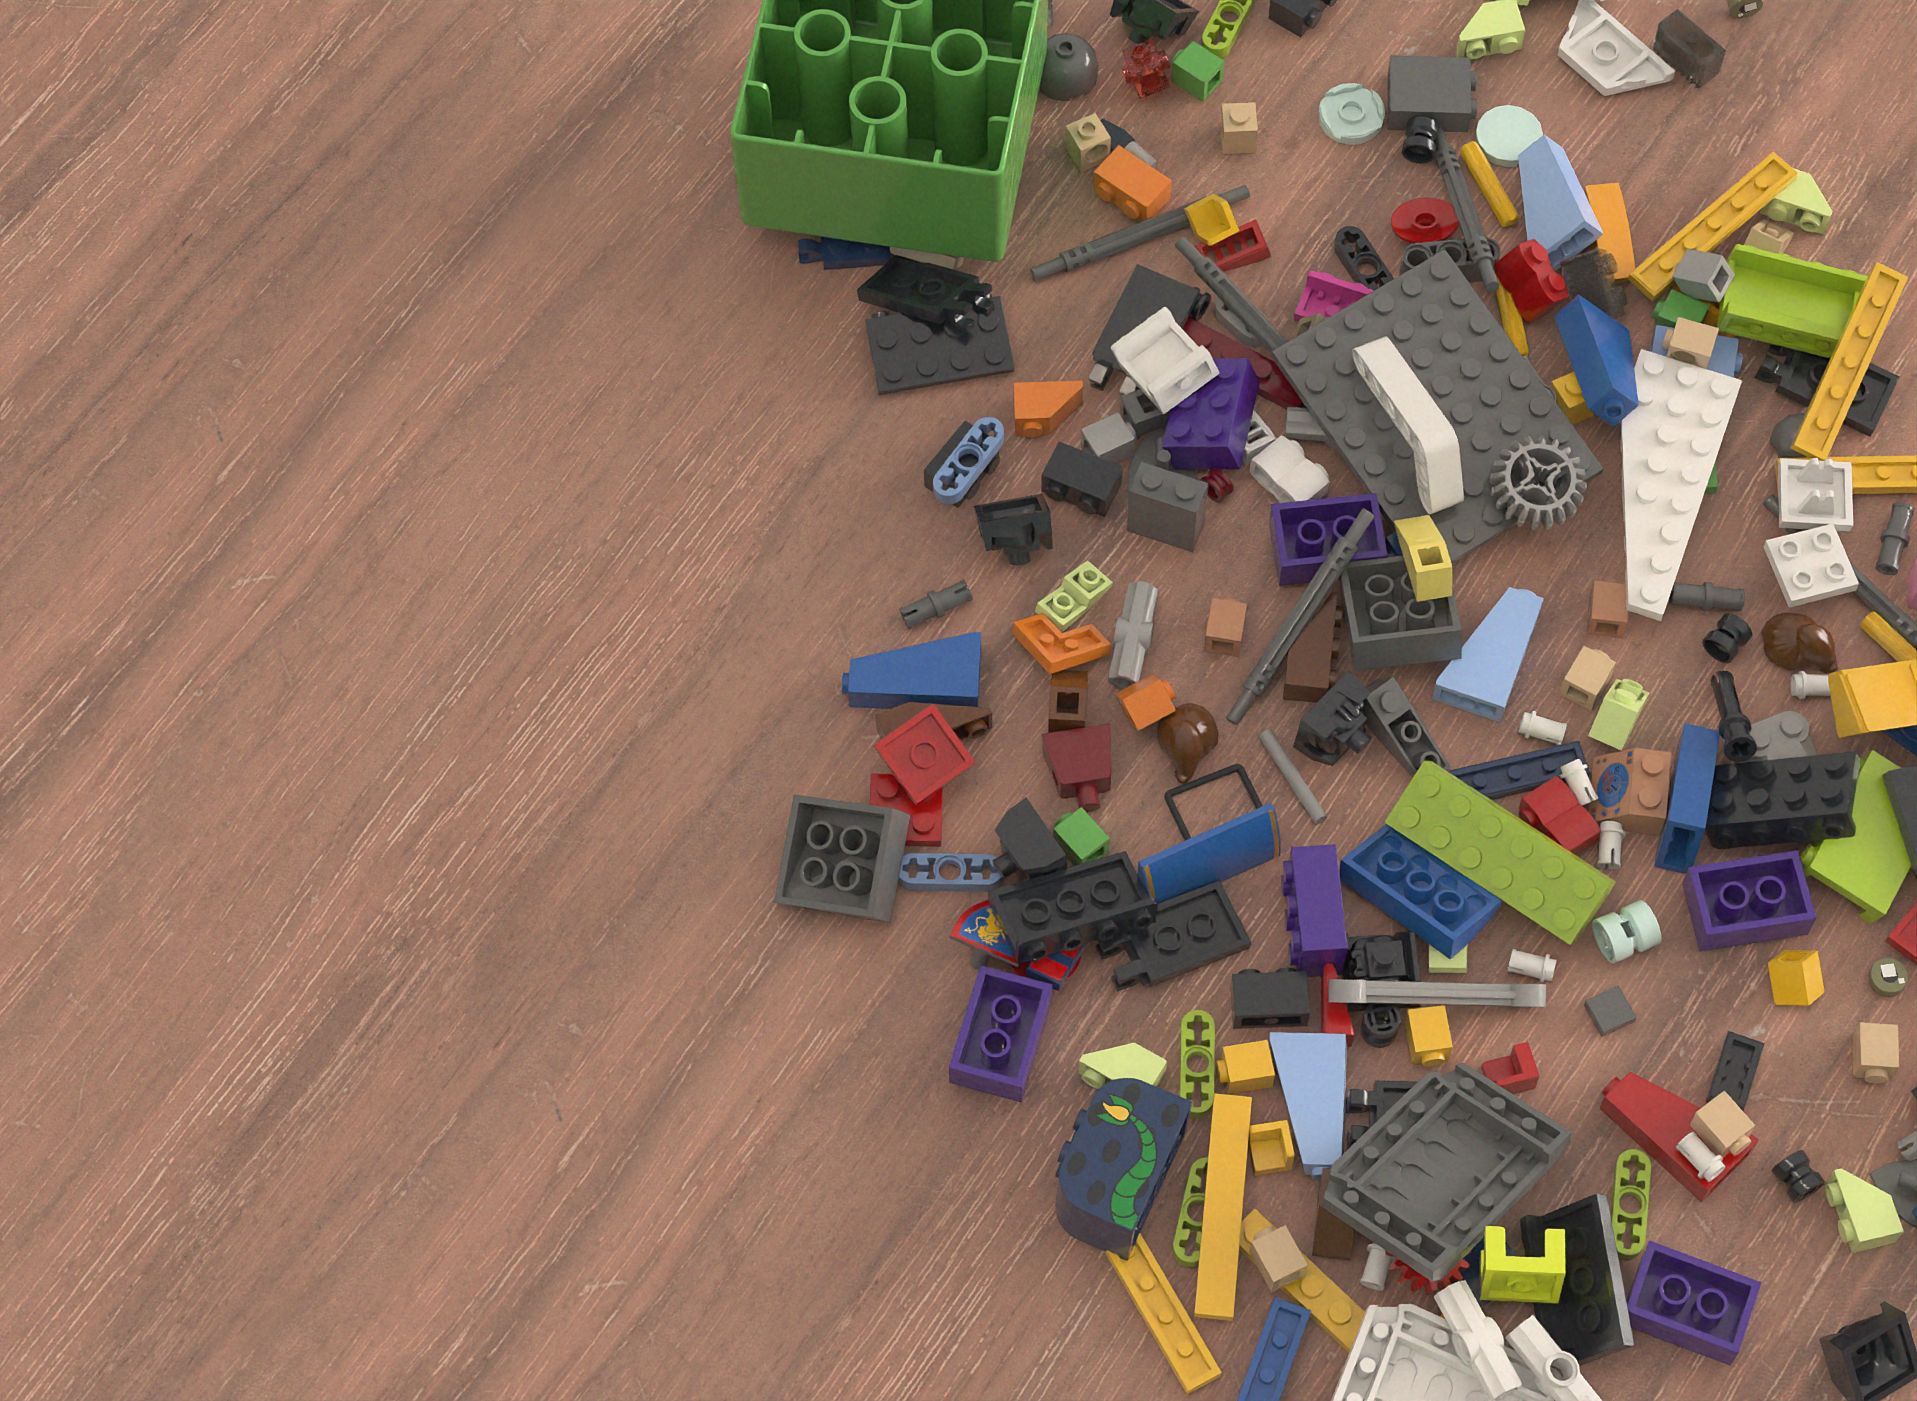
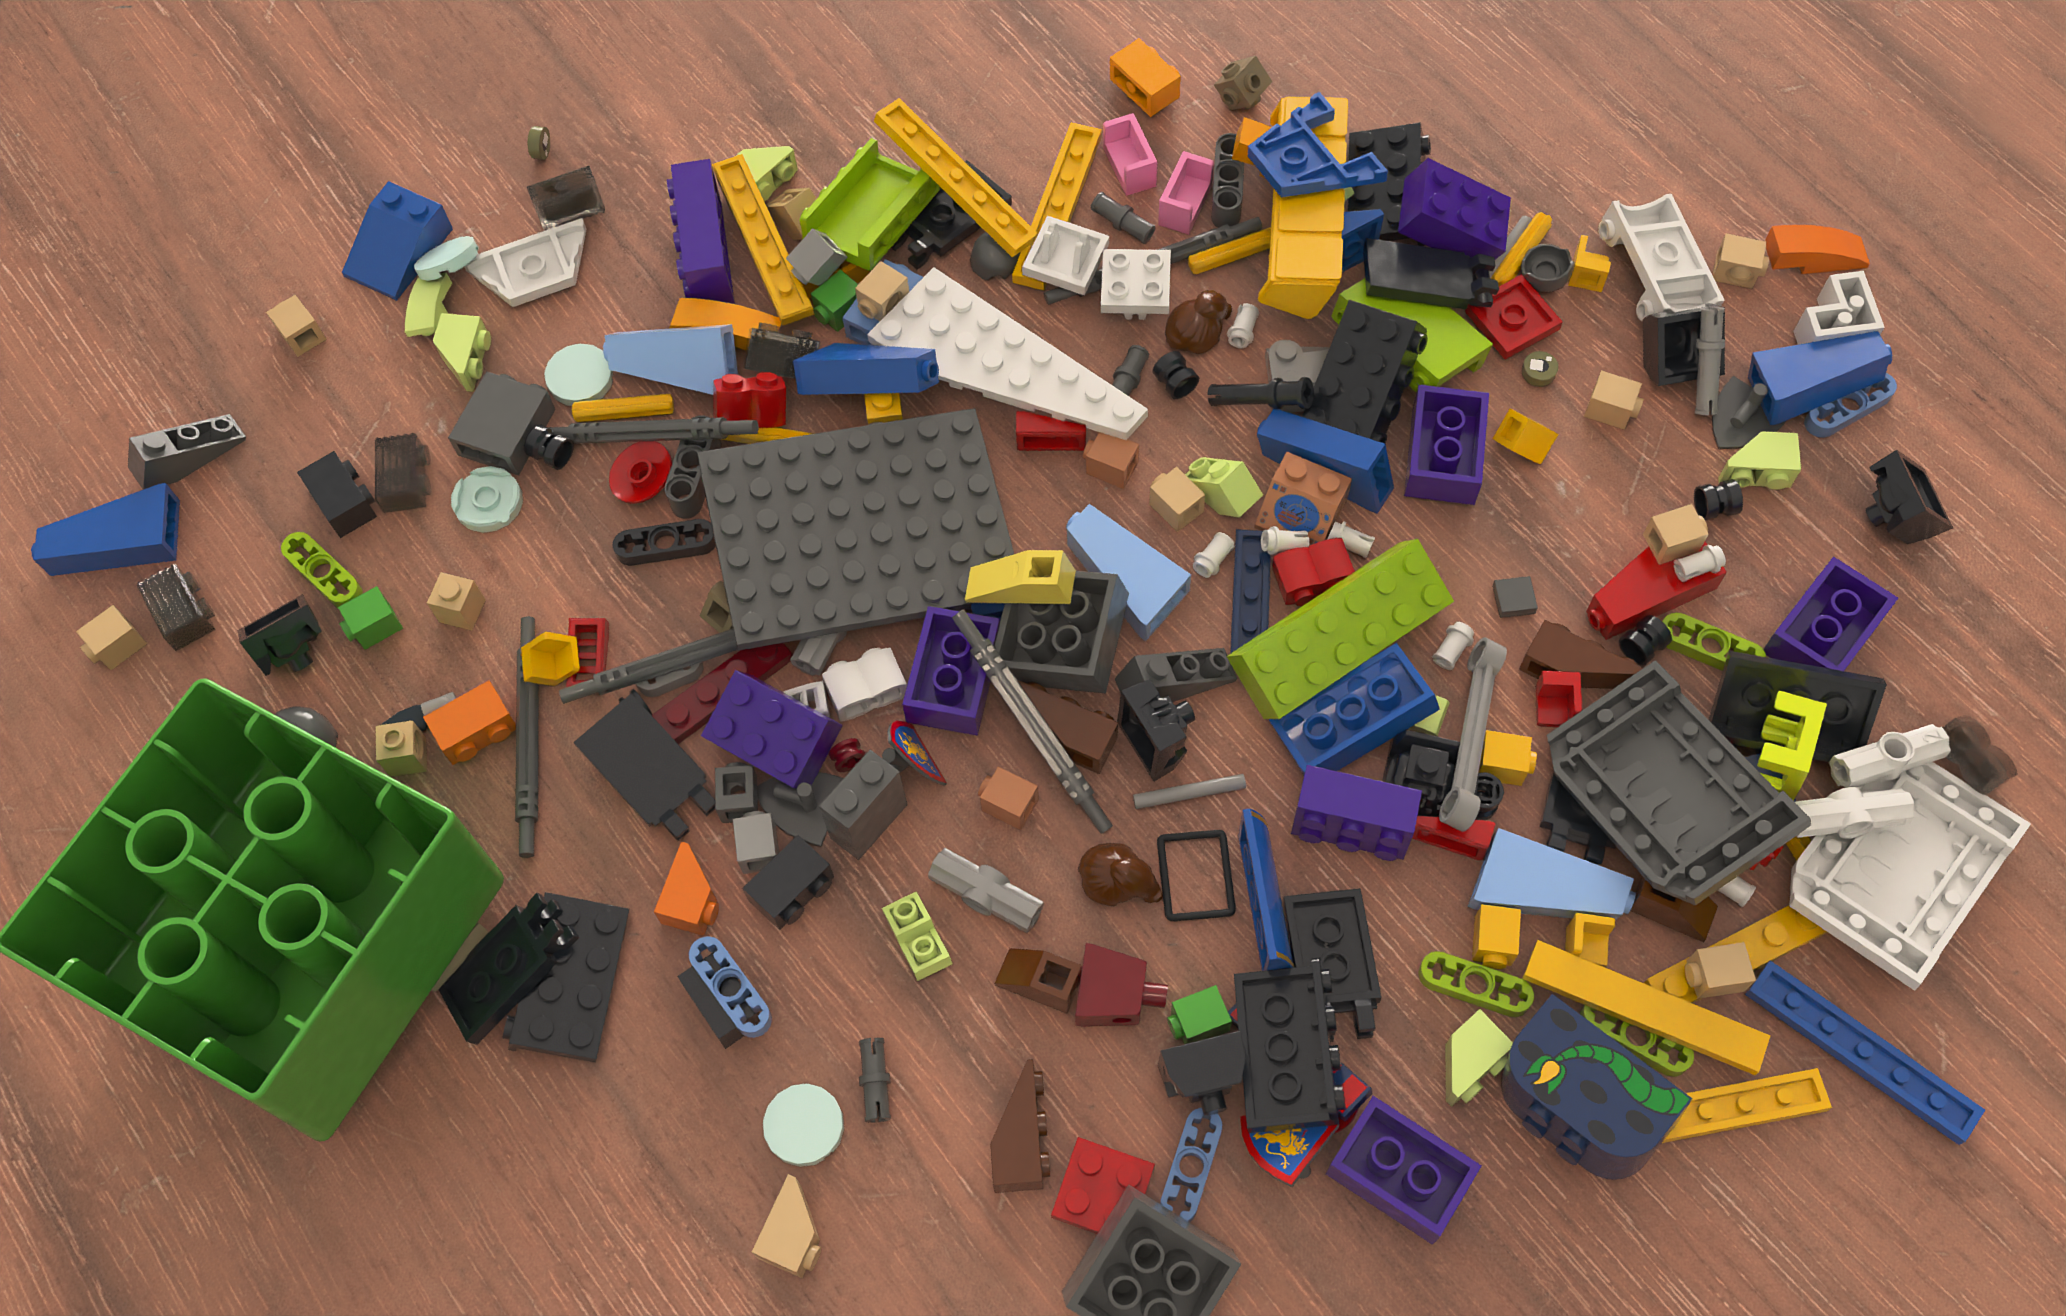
camera: 70 degrees left, 0 degrees up
(791, 581) = (789, 1232): none -> tan slope
(842, 253) = (408, 1048): dark blue plate -> none
(880, 564) = (803, 1125): none -> light aqua tile
(922, 673) = (959, 1115): blue slope -> none
(924, 754) = (1062, 1146): red plate -> none
(1015, 526) = (820, 963): black brick -> none
(1057, 649) = (976, 972): orange plate -> none
(1146, 68) = (344, 663): clear red brick -> none
(1146, 701) = (1069, 899): orange brick -> none
(1164, 360) = (701, 751): white panel -> none
(1237, 531) = (910, 751): none -> shield
(1269, 999) = (1428, 890): black brick -> none
(1327, 295) = (689, 580): dark pink bracket -> none
(1345, 35) = (401, 473): none -> clear smoke brick
(1417, 420) = (874, 530): white beam -> none
(1526, 459) = (962, 472): light grey gear -> none
(1557, 1058) = (1561, 650): none -> reddish brown slope
(1609, 539) = (1046, 433): none -> red slope
(1615, 1141) = (1647, 638): none -> black wheel
(1630, 930) = (1448, 550): light aqua wheel -> none
(1692, 174) = (700, 232): none -> dark purple brick
(1736, 1068) = (1603, 516): black plate -> none

